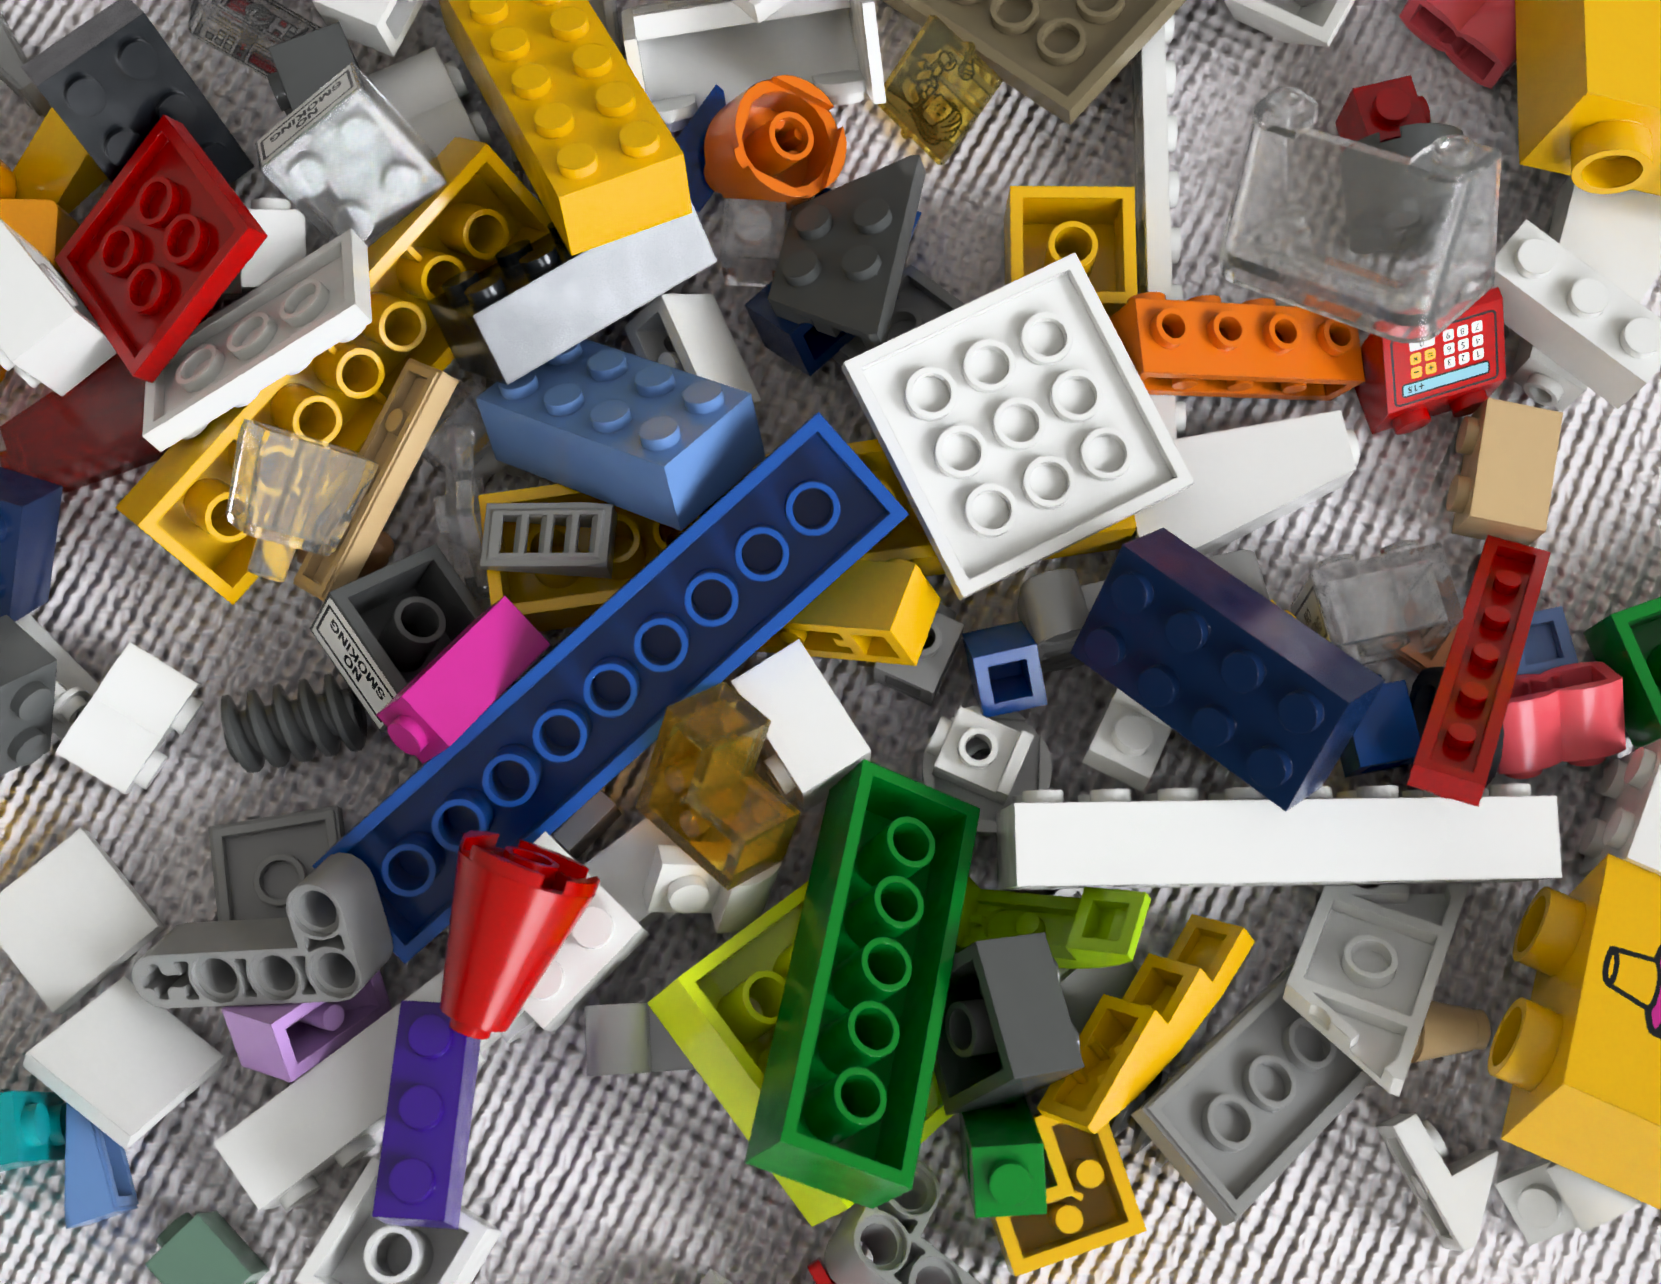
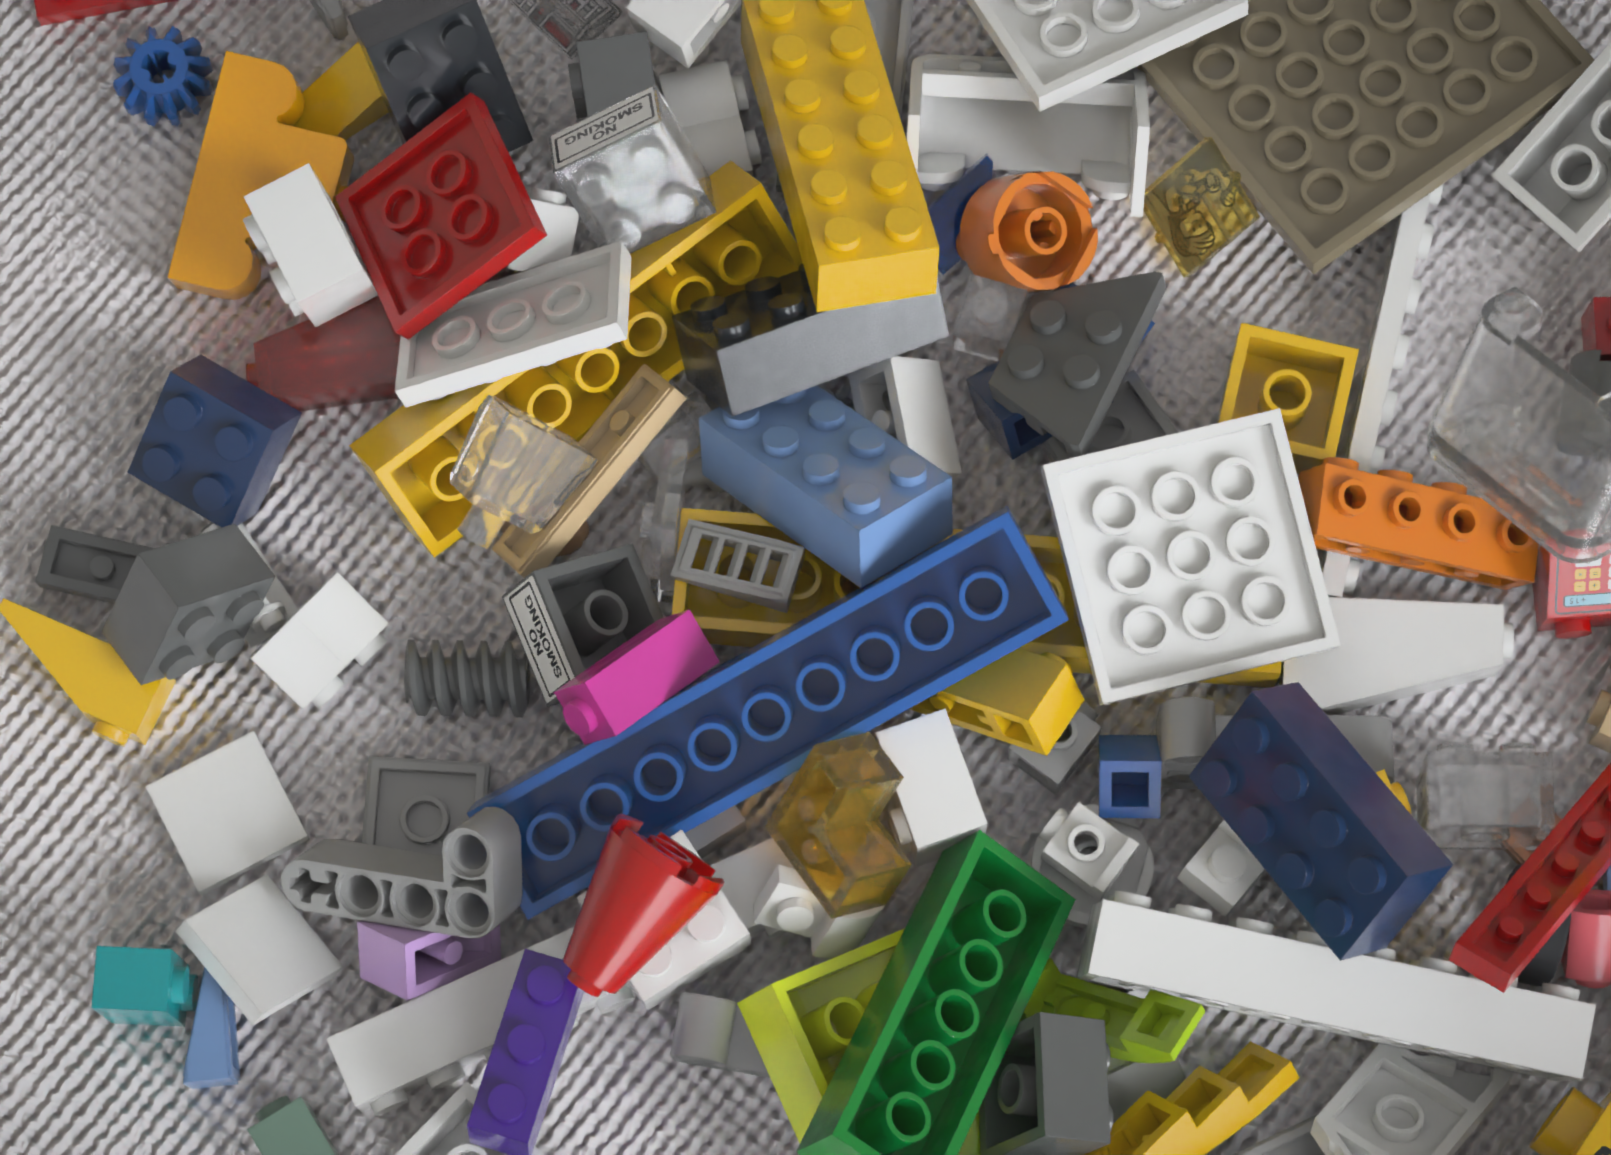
camera: 15 degrees right, 0 degrees up
(1386, 734) = (1458, 902): blue brick -> none

